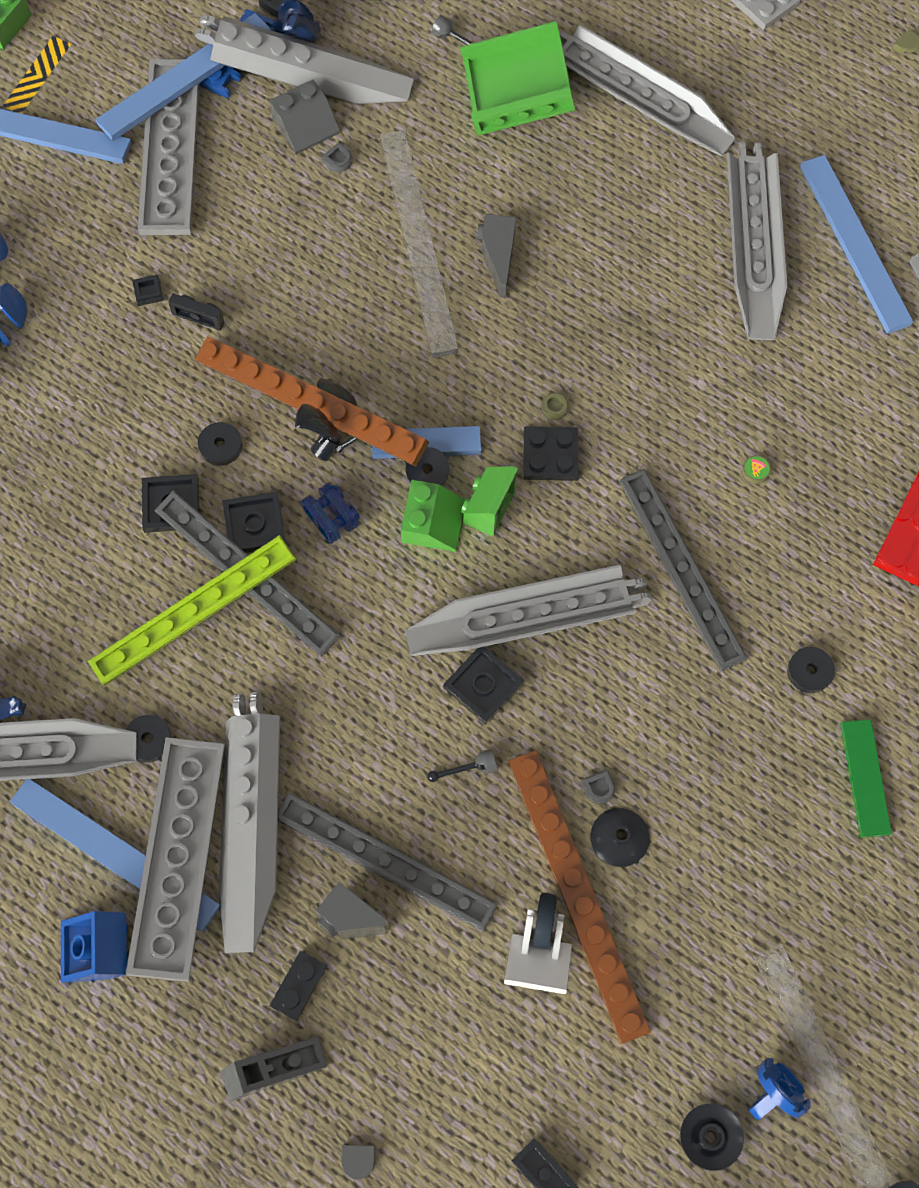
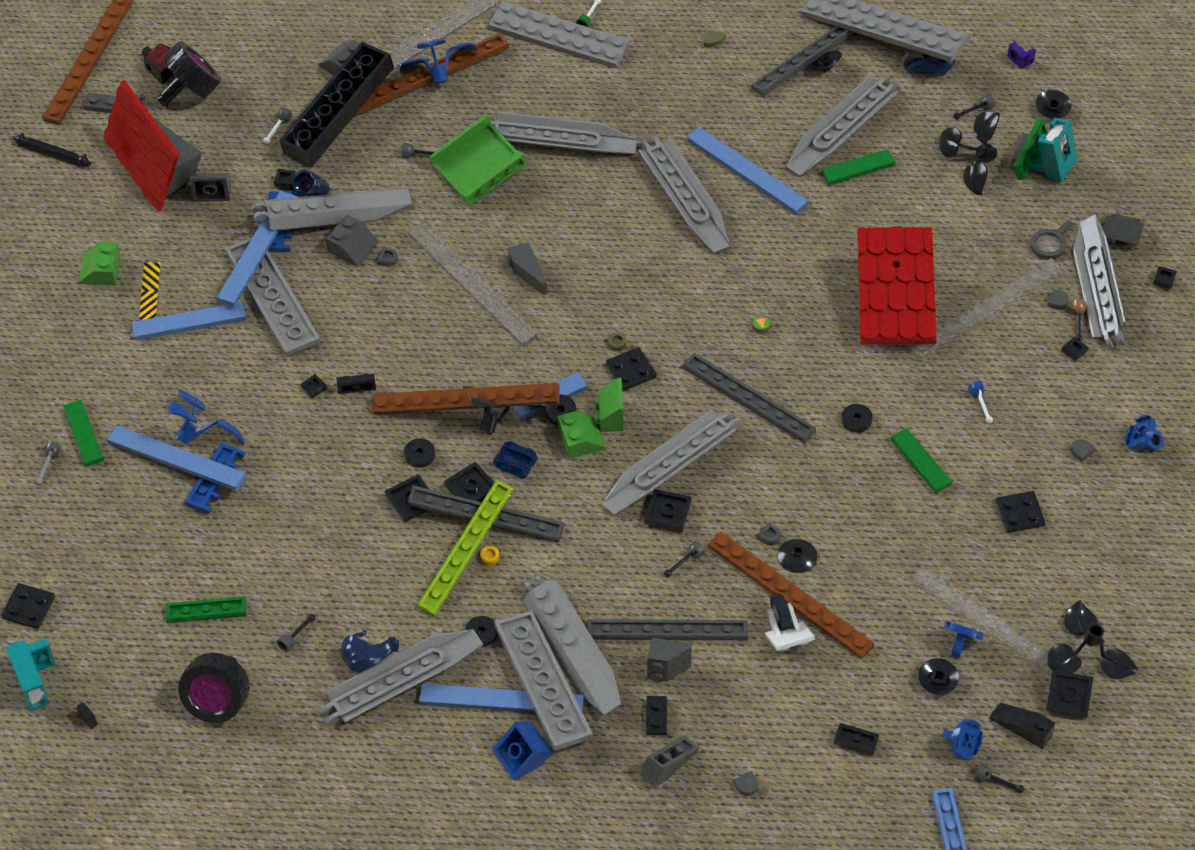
camera: 25 degrees left, 15 degrees down
(221, 633) = (489, 555): none -> yellow tile

